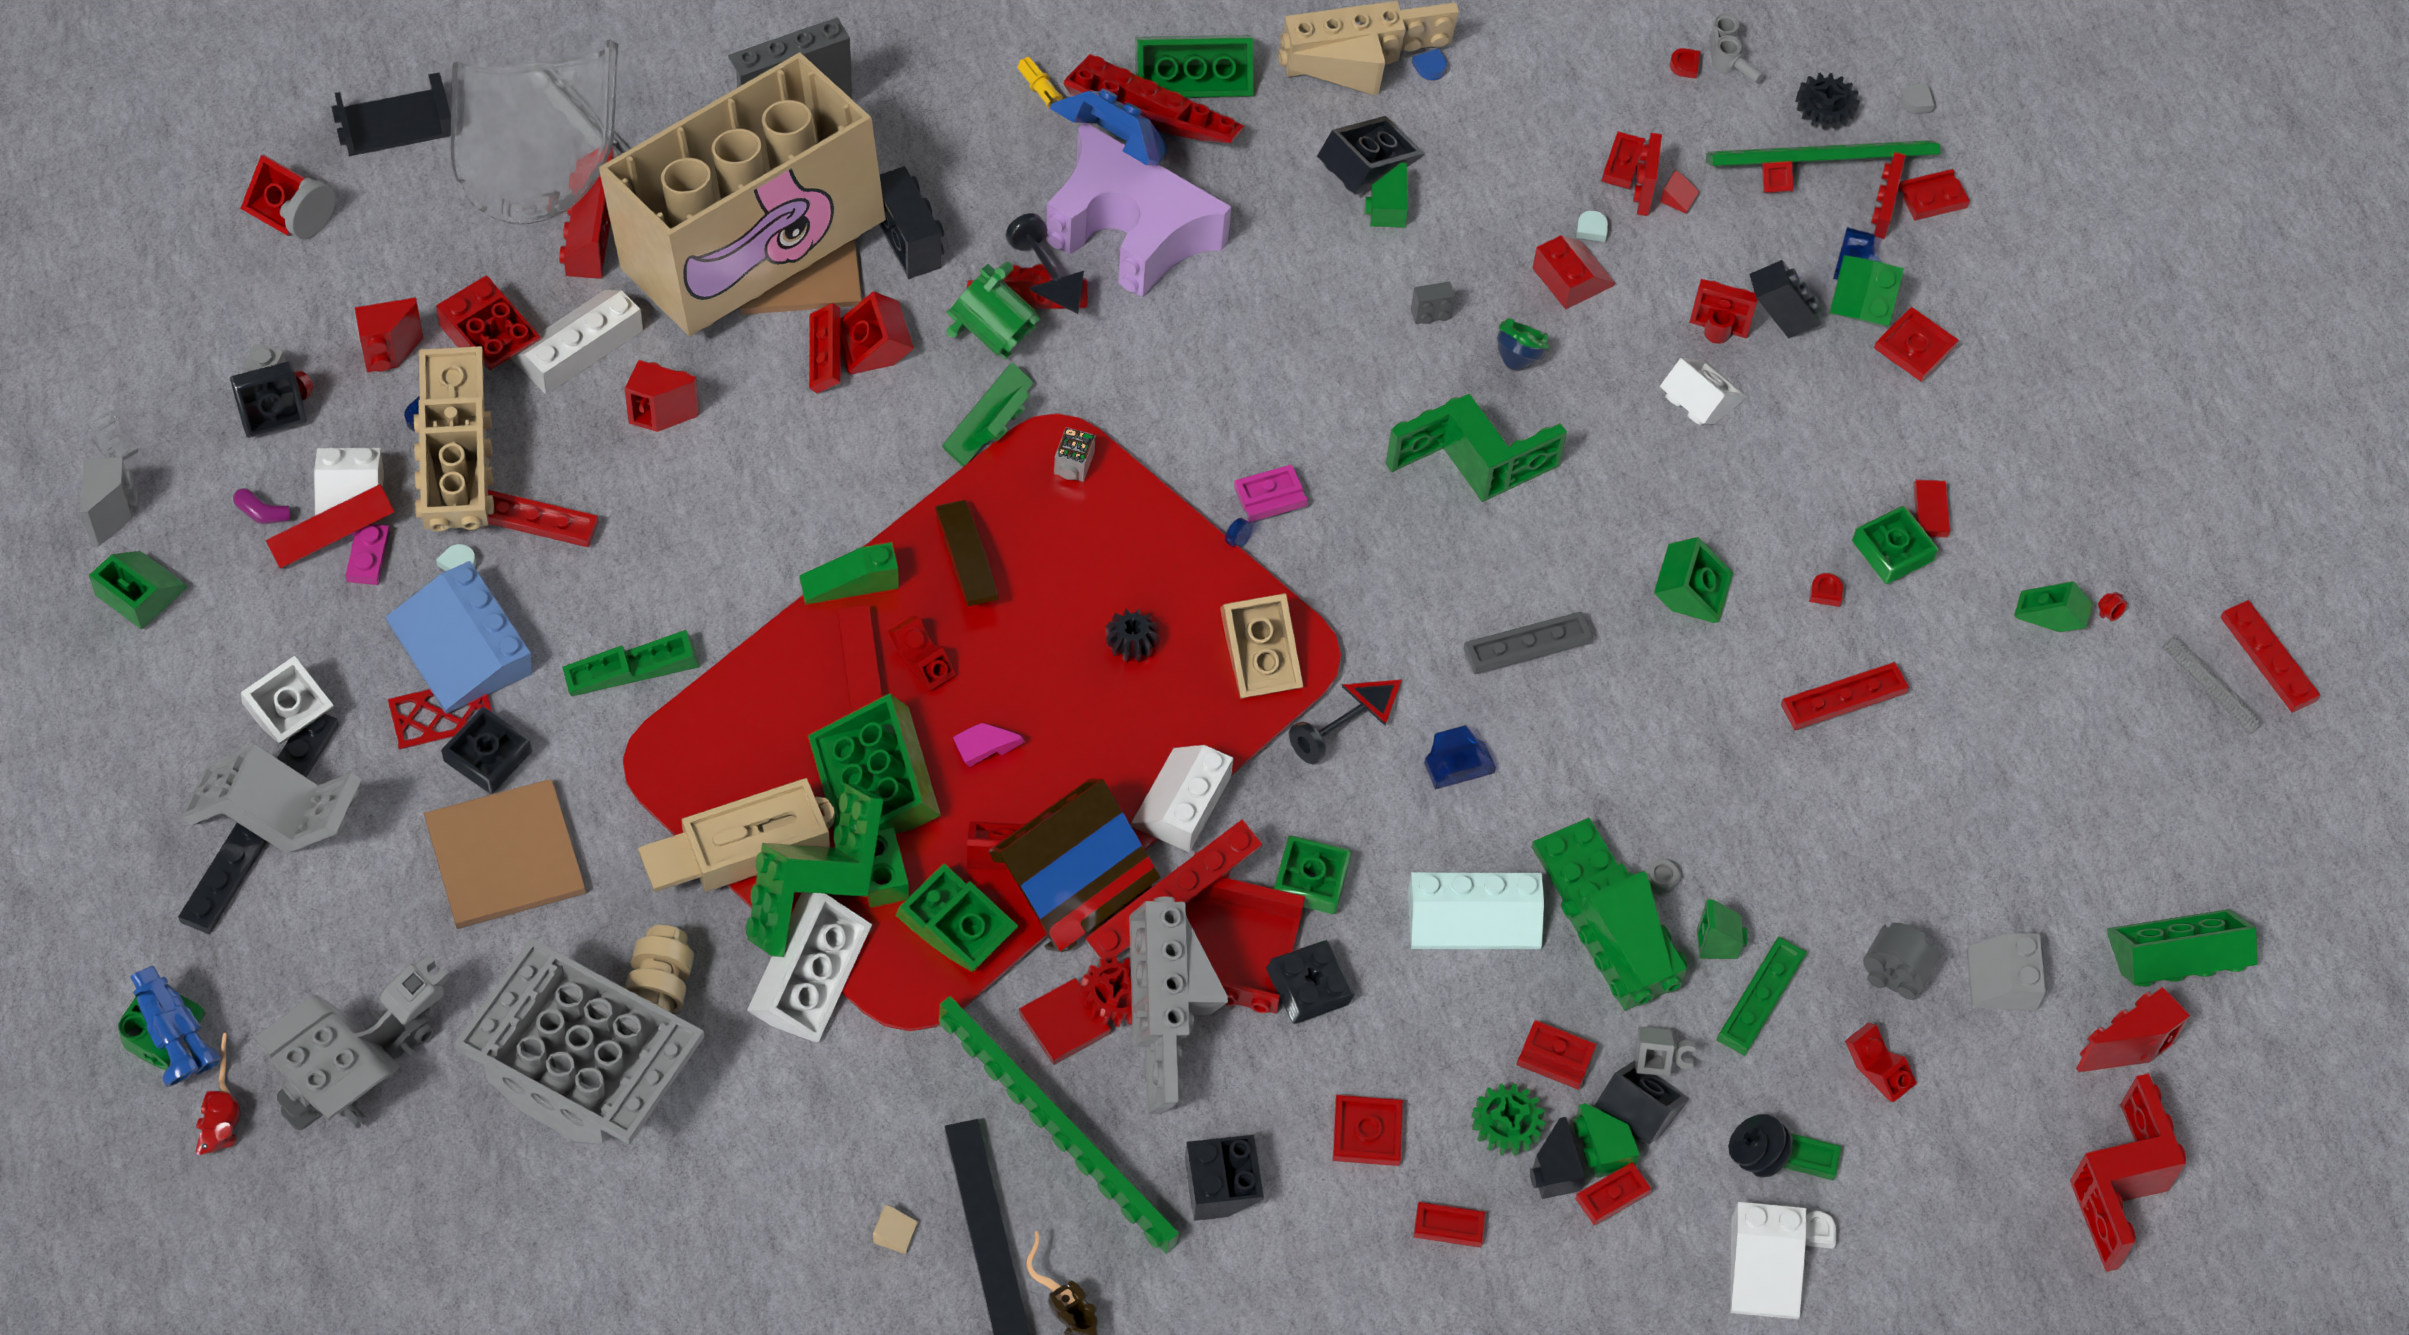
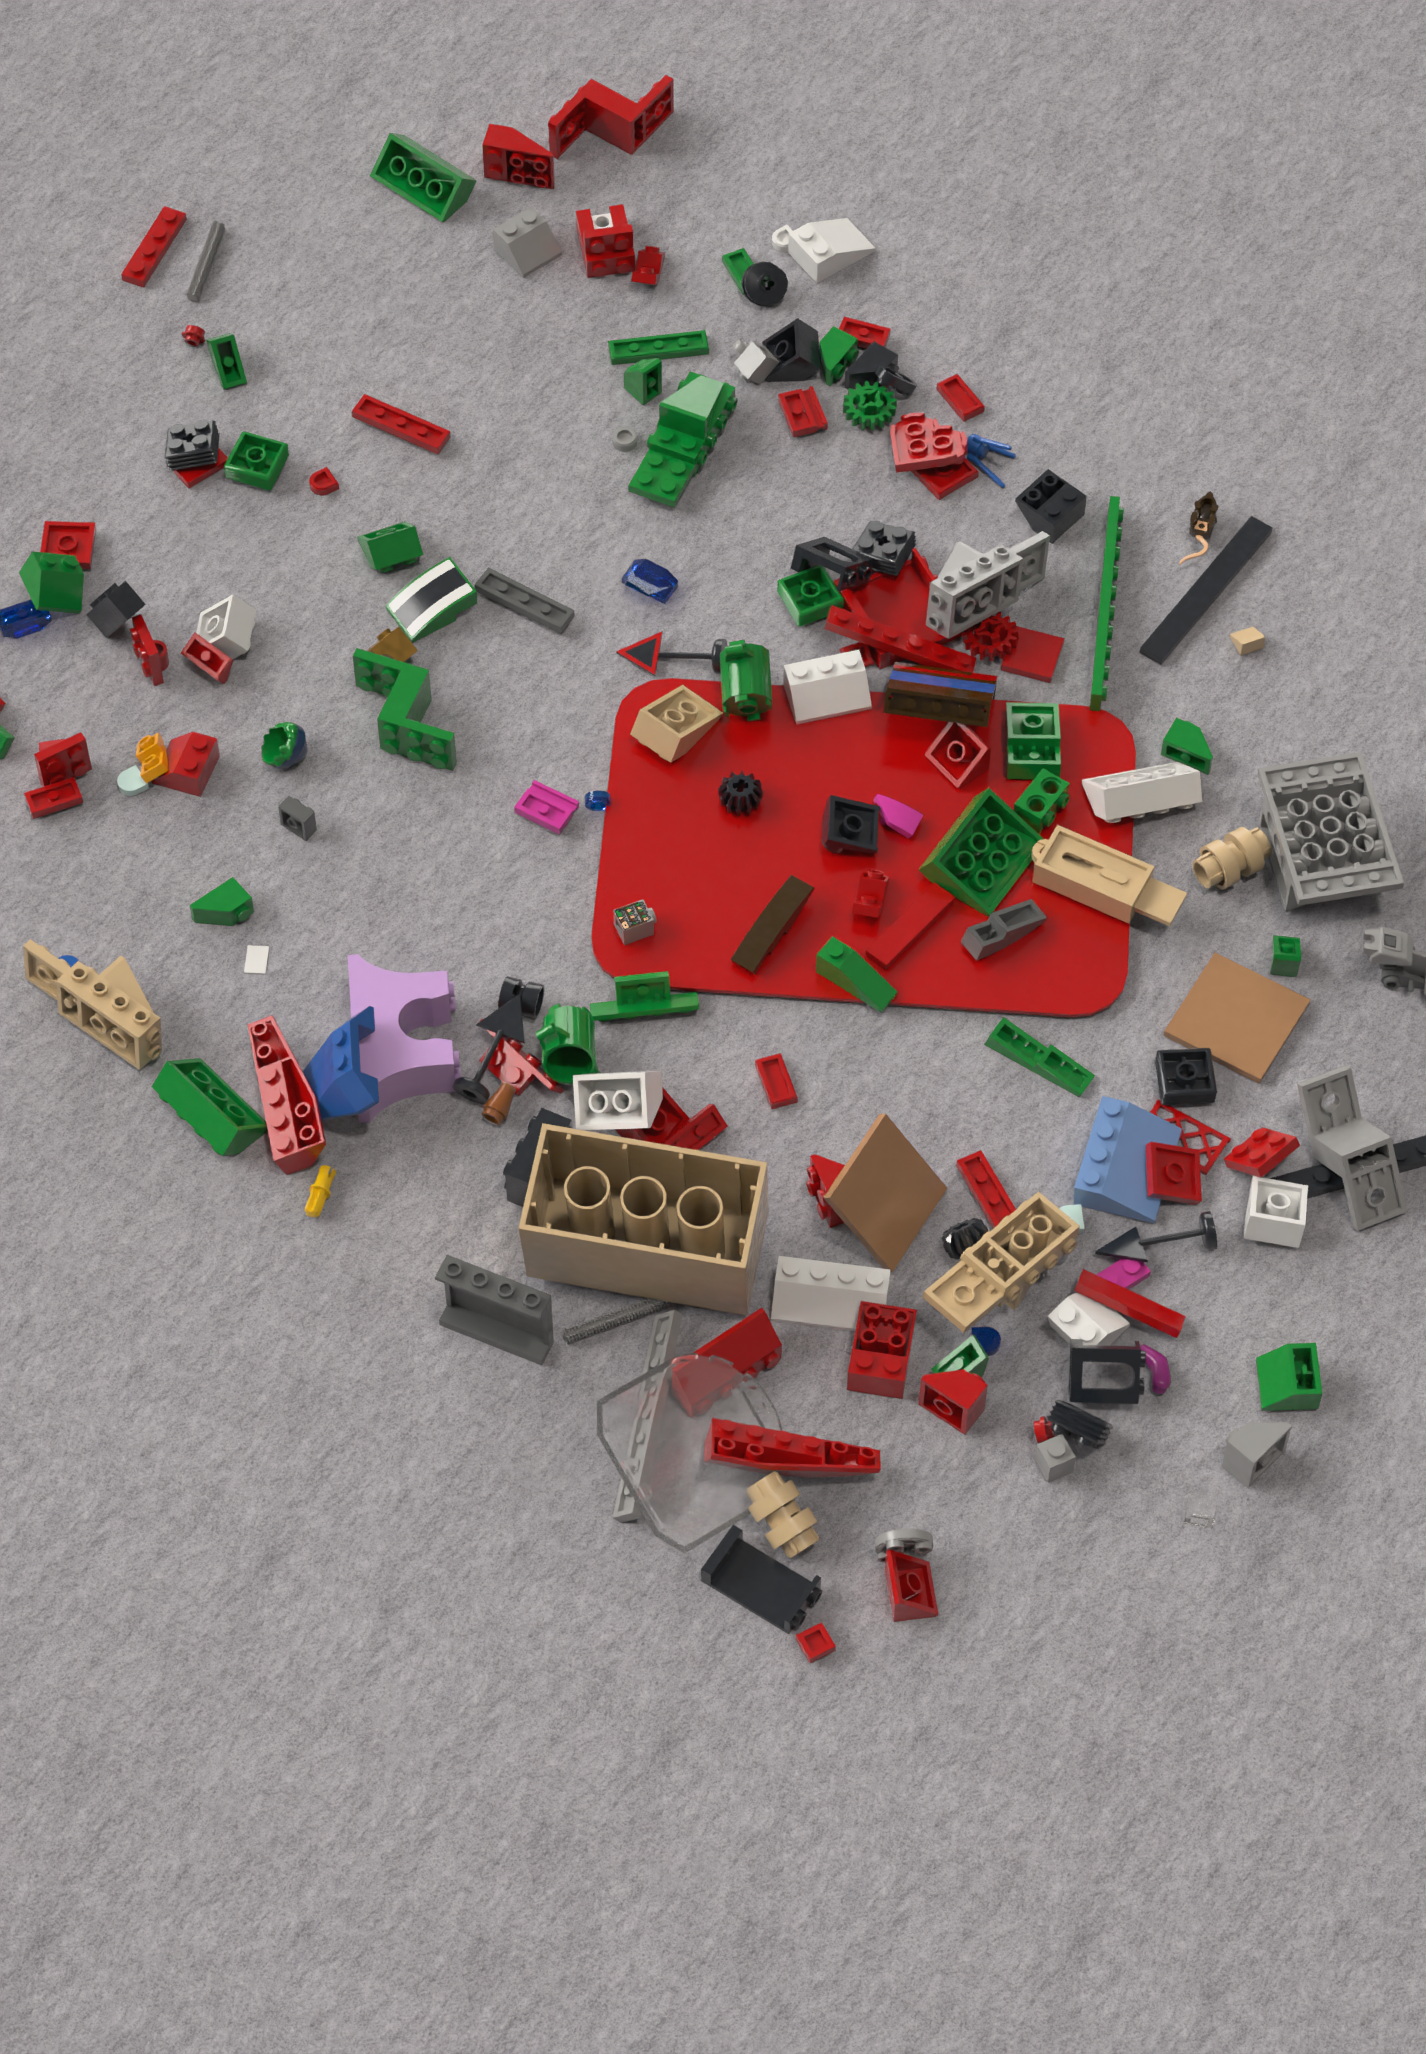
camera: 125 degrees left, 0 degrees up
(303, 429) = (1098, 1353): none -> black panel
(307, 111) = (815, 1642): none -> red plate
(350, 739) = (1261, 1152): none -> red plate
(383, 575) = (1131, 1246): none -> black piece
(405, 374) = (966, 1356): none -> green slope
(407, 657) = (1173, 1173): none -> red plate
(416, 149) = (788, 1524): none -> tan piece
(464, 177) = (787, 1453): none -> red wedge
(512, 929) = (1285, 956): none -> green slope
(516, 456) = (962, 1236): none -> black gear
(609, 413) = (885, 1192): none -> medium nougat tile
(779, 727) = (1002, 929): none -> dark grey slope
(814, 869) = (1091, 808): green bracket -> none
(817, 458) = (776, 1081): none -> red tile
(821, 1058) = (1187, 746): none -> green slope
(899, 295) = (617, 1100): none -> white slope
(994, 244) = (499, 1104): none -> dark orange cone
(1006, 688) = (850, 825): none -> black slope
(1086, 328) = (530, 994): none -> black wheel
(1247, 717) = (745, 680): none -> green container
(1317, 196) = (256, 959): none -> white sticker
(1354, 901) = (817, 553): none -> black panel
(1362, 1178) = (980, 447): none -> blue plant
(1367, 152) = (194, 943): black slope -> none
(1409, 1121) = (925, 444): none -> plate
(1475, 910) = (746, 506): light aqua slope -> none
(1516, 1159) = (900, 382): none -> black plate
(1561, 492) = (393, 645): none -> pearl gold brick
(1593, 570) = (432, 600): none -> slope
(1609, 253) = (152, 756): none -> light orange slope
(1674, 350) = (208, 657): none -> red slope
(1901, 960) = (576, 284): dark grey brick -> none
(1956, 502) = (192, 445): none -> black brick
(1958, 1037) = (606, 242): none -> red brick

